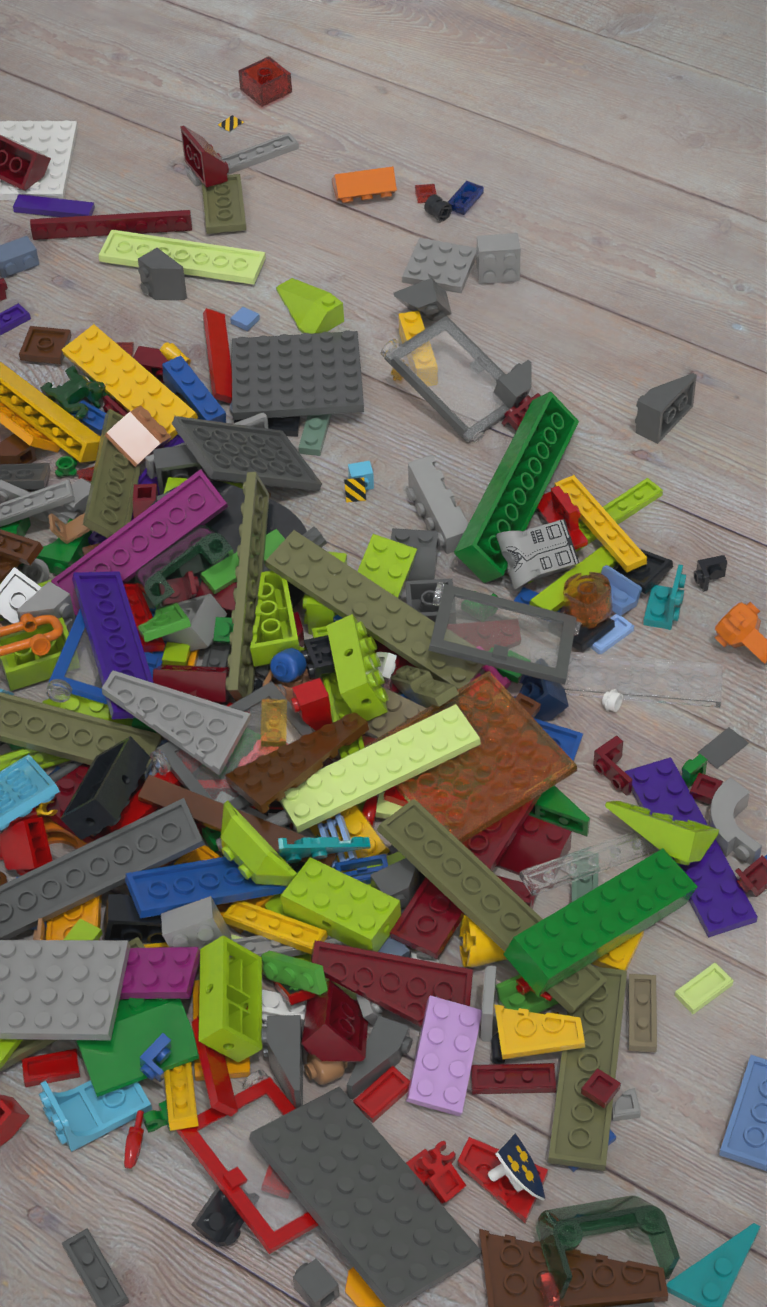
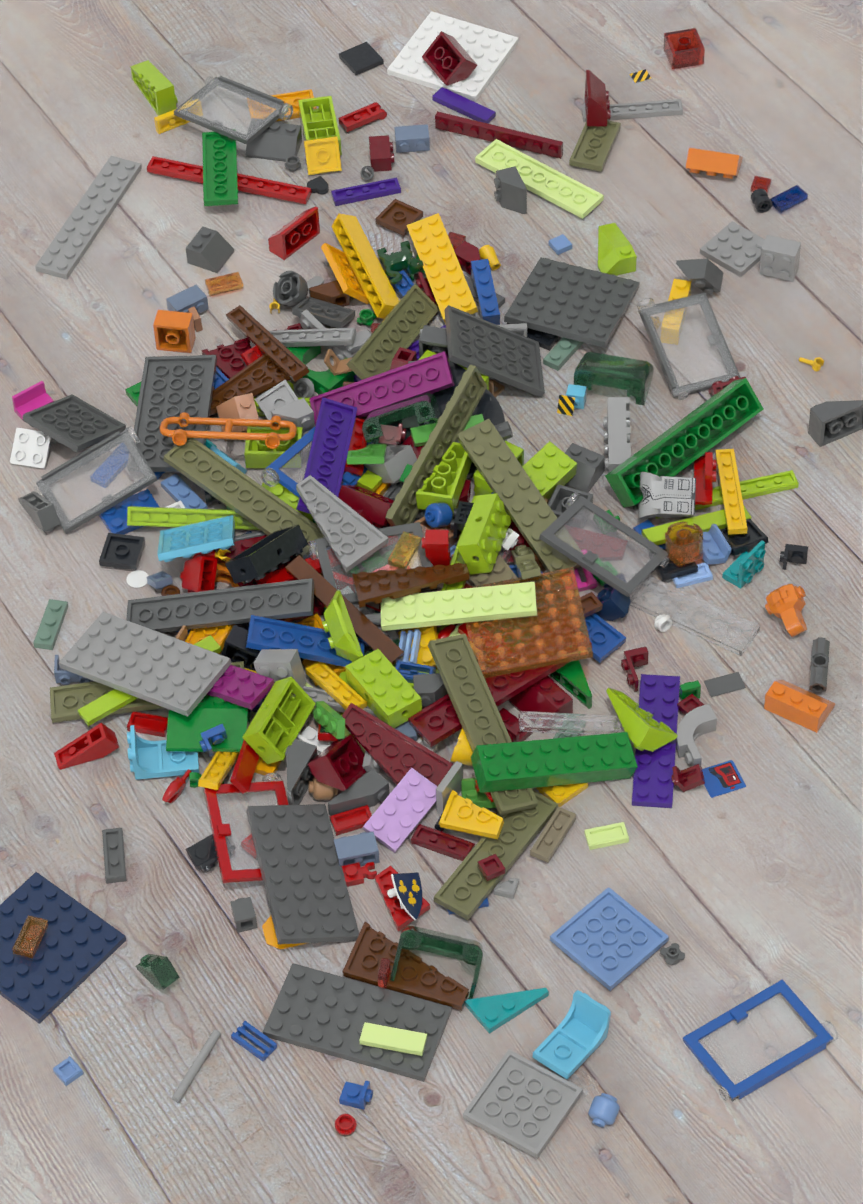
camera: 25 degrees right, 0 degrees up
(137, 435) = (424, 309): slope -> none
(218, 355) = (523, 265): red tile -> none
(319, 847) = (387, 644): teal wing -> none
(391, 435) = (615, 373): none -> clear green windscreen
(415, 1131) = (356, 849): none -> sand blue brick
(444, 1179) = (358, 885): red plate -> none
(515, 385) = (730, 364): dark grey slope -> none
(600, 358) = (816, 364): none -> yellow hand

